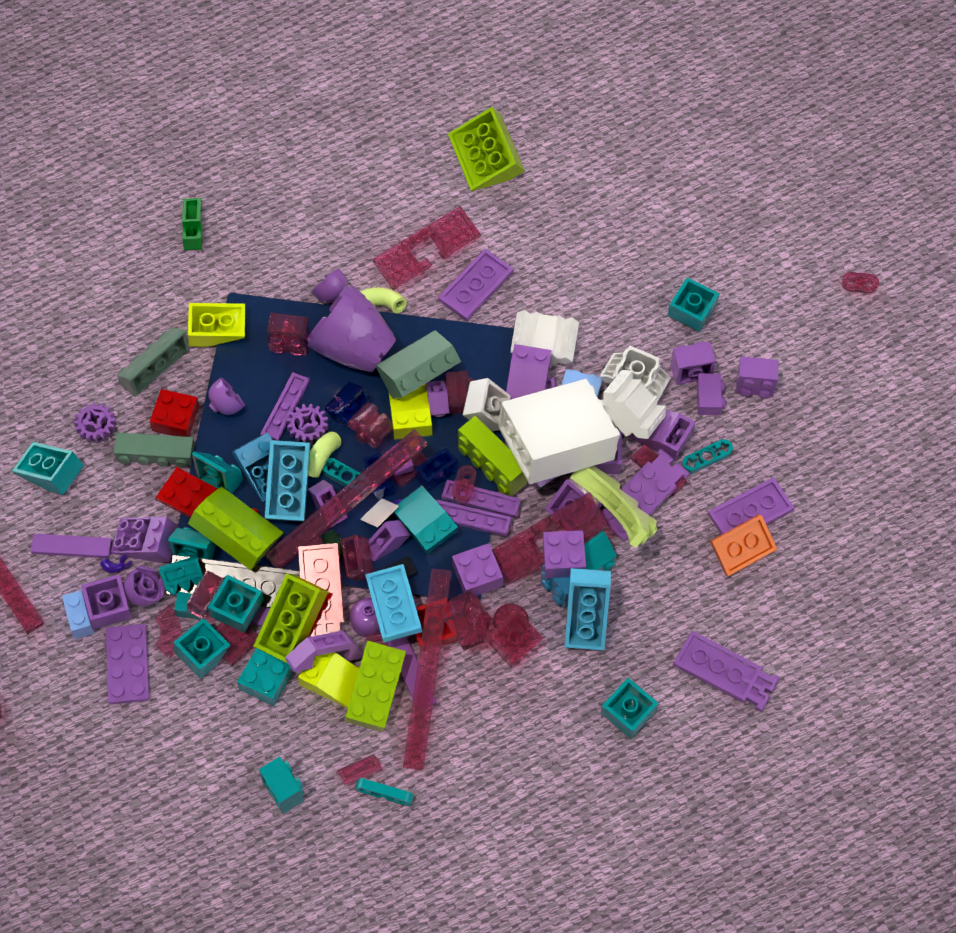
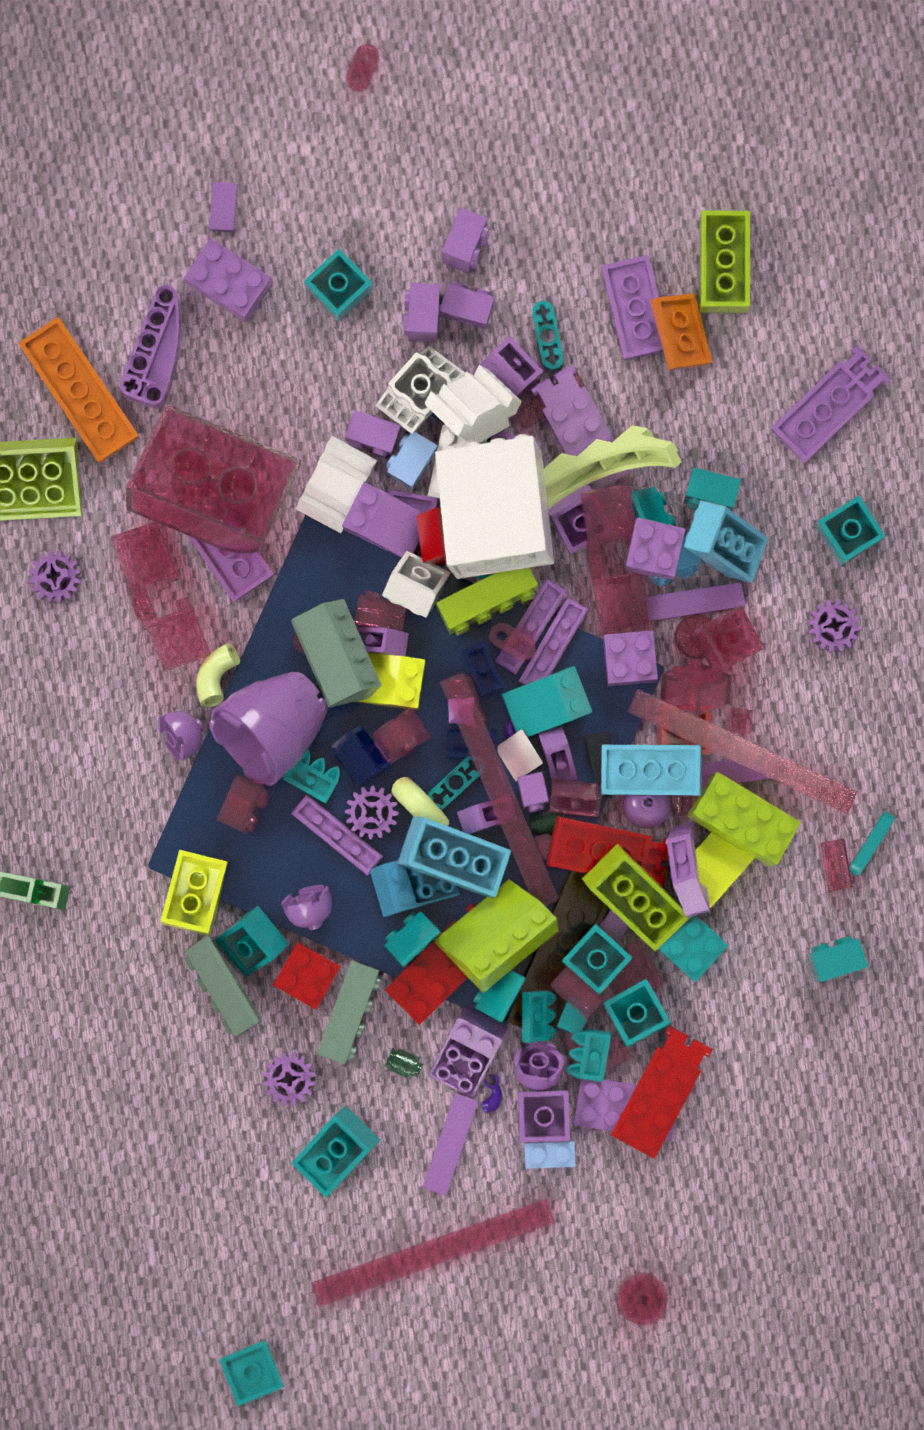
camera: 70 degrees left, 20 degrees up
(124, 496) = (404, 1063): none -> clear green brick
(143, 681) = (660, 1093): none -> red hinge
(162, 622) = (591, 1056): none -> teal plate
(191, 371) = (252, 941): none -> teal slope
(322, 377) = (311, 778): none -> teal plate
(353, 523) = (533, 792): none -> medium lavender brick
(420, 184) = (66, 574): none -> medium lavender gear
(454, 668) = (739, 720): none -> clear pink tile
(518, 245) = (210, 482): none -> clear pink brick
(537, 612) = (694, 602): none -> medium lavender tile
(558, 712) = (837, 637): none -> medium lavender gear
(559, 165) = (78, 390): none -> orange plate
(592, 355) = (372, 434): none -> medium lavender brick
(601, 209) = (160, 358): none -> medium lavender beam
(625, 596) = (711, 488): none -> teal brick
(671, 235) = (228, 280): none -> medium lavender brick
(724, 221) = (223, 207): none -> medium lavender tile
(809, 561) = (724, 261): none -> lime brick

